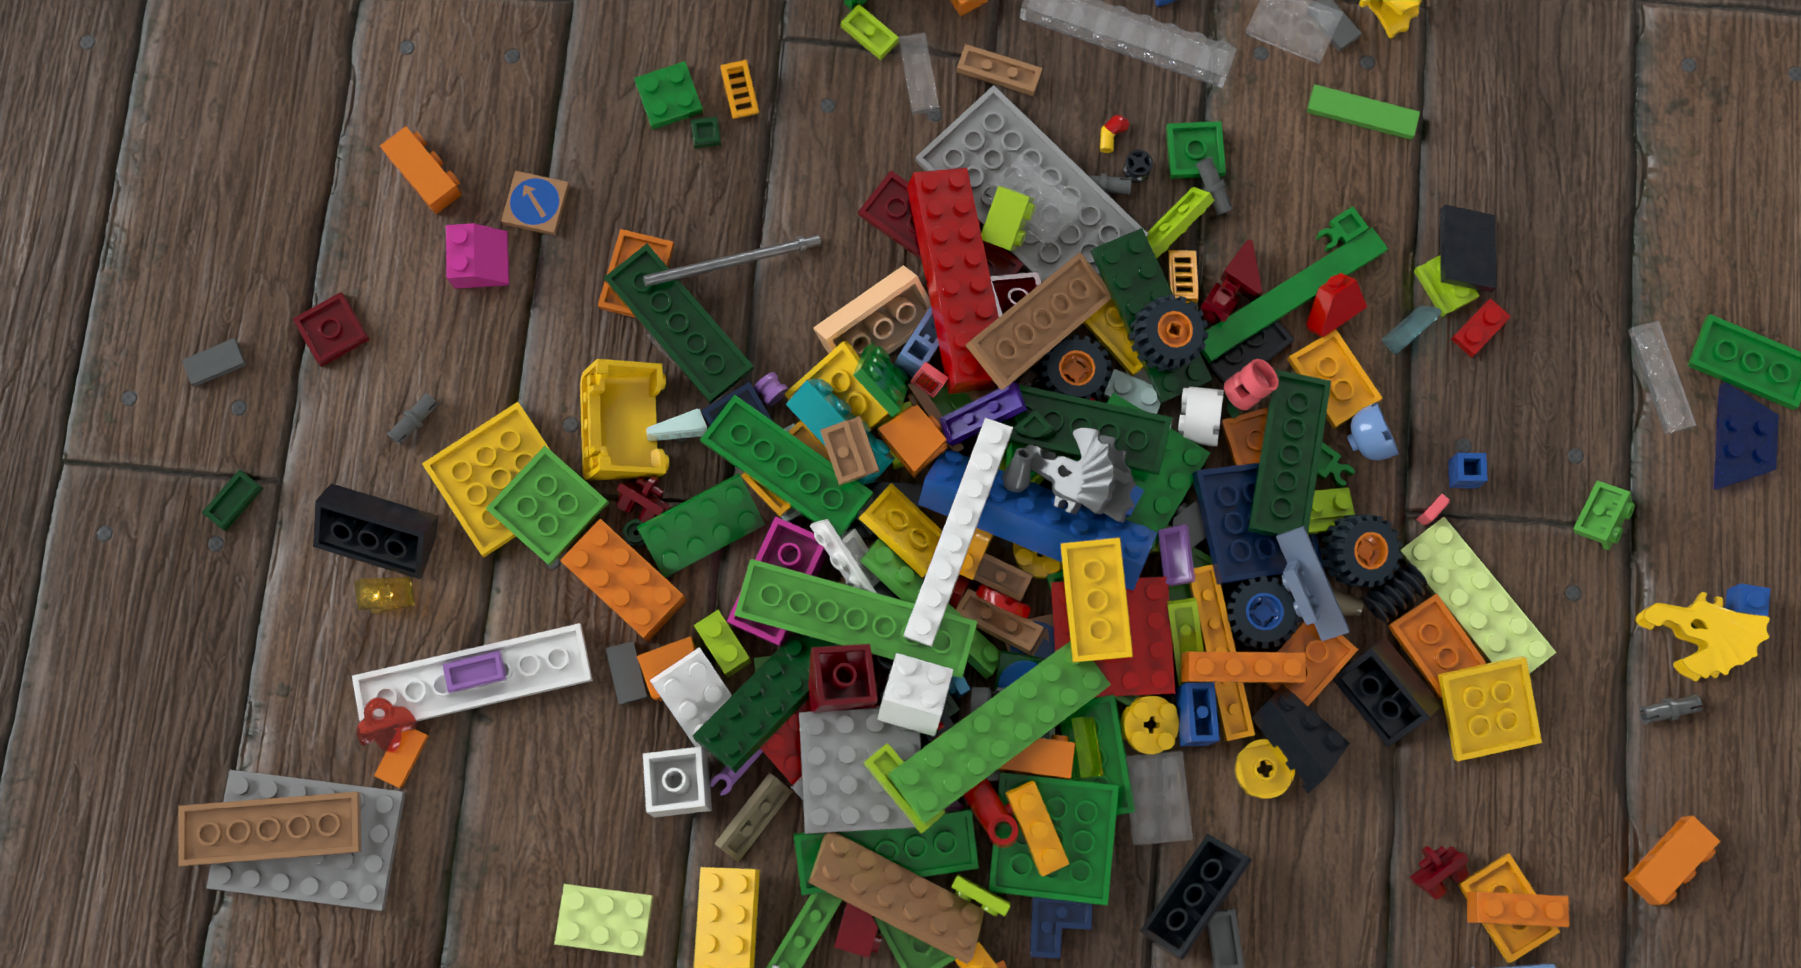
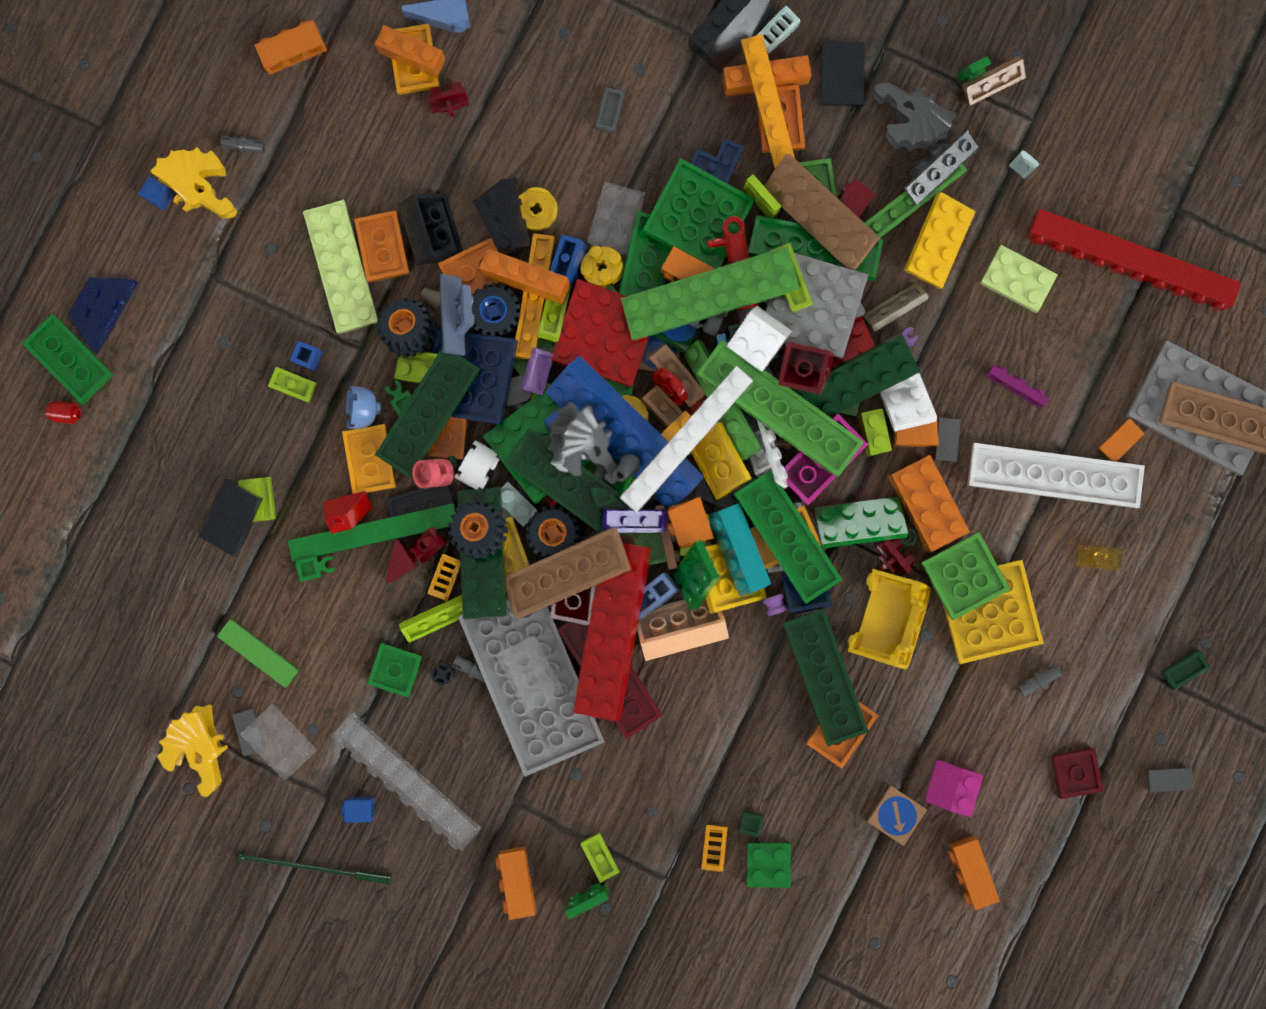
camera: 160 degrees left, 10 degrees up
(374, 530) = (1092, 607): black slope -> none
(385, 729) = (1127, 461): clear red plate -> none
(474, 672) = (1053, 477): medium lavender tile -> none
(559, 774) = (1017, 386): none -> magenta plate
(677, 782) = (940, 348): white brick -> none
(682, 426) = (843, 599): light aqua slope -> none
(799, 244) = (765, 710): flat silver bar -> none
(849, 450) = (740, 527): medium nougat plate -> none
(918, 73) = (575, 810): clear tile -> none
(929, 379) = (661, 563): tile -> none
(999, 70) = (514, 789): medium nougat plate -> none
(1008, 218) = (557, 663): lime brick -> none
(1037, 828) = (709, 221): light orange plate -> none
(1087, 747) = (653, 264): clear neon green tile -> none
(1096, 600) = (609, 354): yellow plate -> none
(1109, 130) = (451, 710): arm -> none
(1195, 897) = (620, 139): black slope -> none
(1214, 185) = (394, 635): dark grey pin -> none
(1395, 591) = (395, 291): black piece -> none
(1410, 328) = (298, 476): clear light blue slope -> none
(1433, 510) = (342, 339): coral tile -> none
(1468, 432) = (292, 384): none -> lime plate
(1480, 328) = (247, 458): red plate -> none
(1490, 708) = (366, 189): yellow plate -> none
(1605, 514) = (224, 291): bright green bracket -> none
(1662, 377) = (136, 372): clear plate -> none
(1724, 297) = (63, 412): none -> red brick

